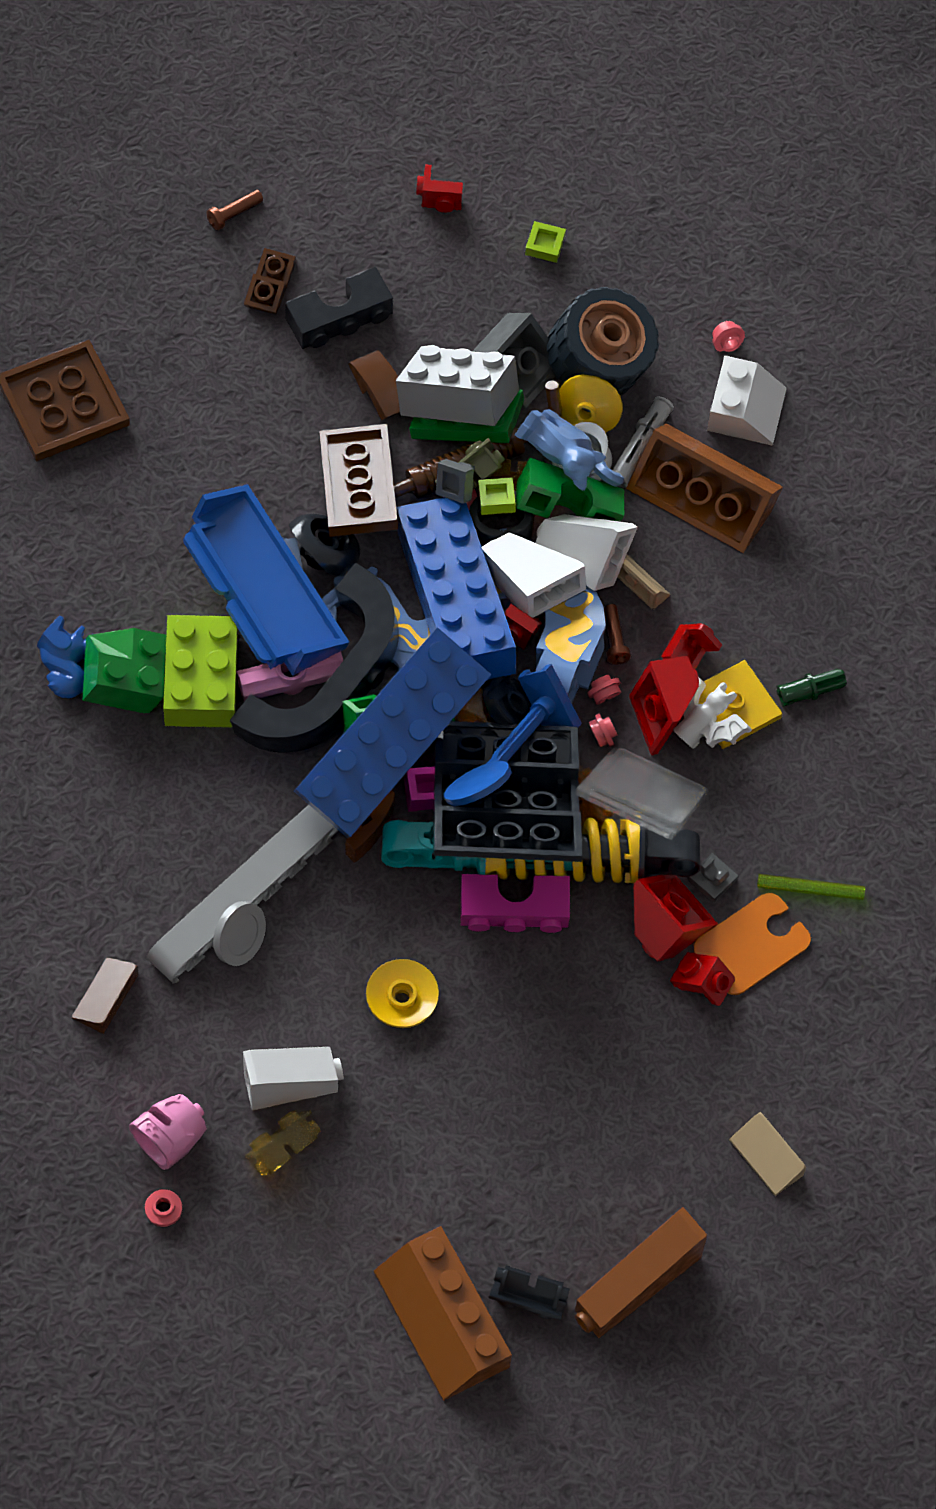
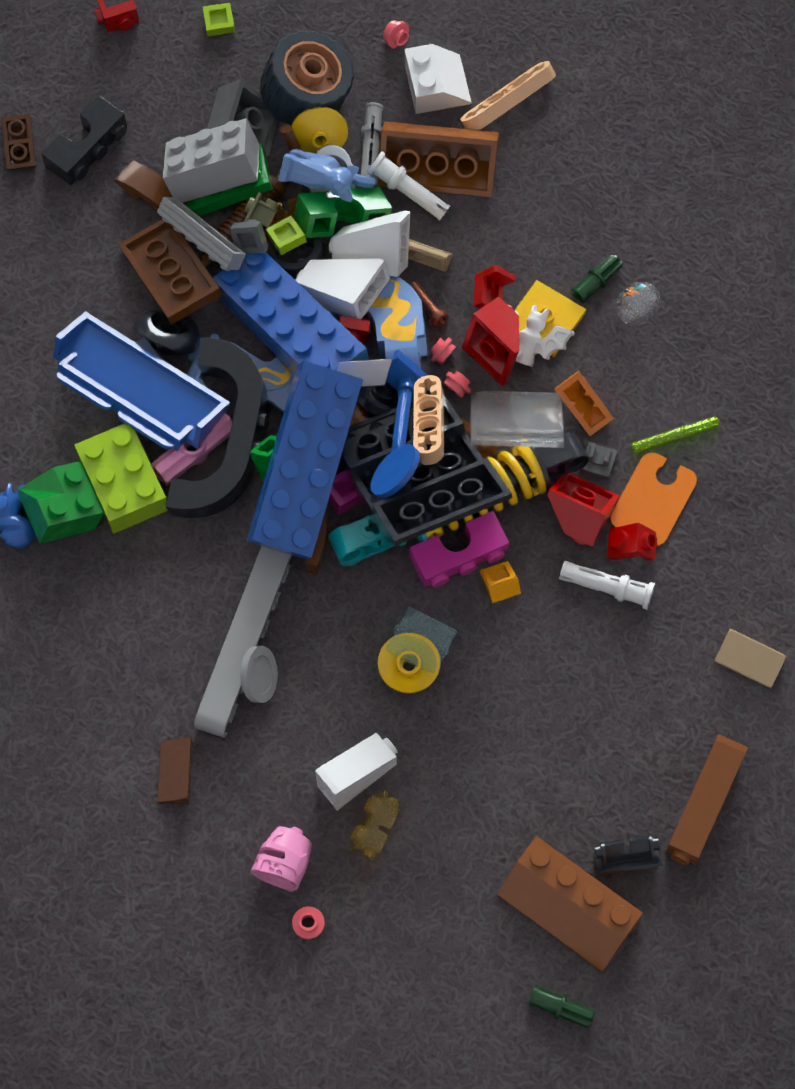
camera: 20 degrees left, 5 degrees up
(380, 1413) = (561, 1007): none -> dark green axle
(407, 455) = (201, 234): none -> light grey piece
(448, 976) = (435, 631): none -> clear light blue piece
(505, 672) = (371, 371): none -> white sticker
(540, 747) = (429, 419): none -> light nougat beam
(543, 955) = (500, 581): none -> light orange slope
(648, 488) = (397, 178): none -> white pin
(667, 1018) = (621, 587): none -> white pin
(727, 809) = (584, 403): none -> orange slope
(814, 454) = (508, 96): none -> light nougat beam
(840, 731) = (638, 303): none -> clear head

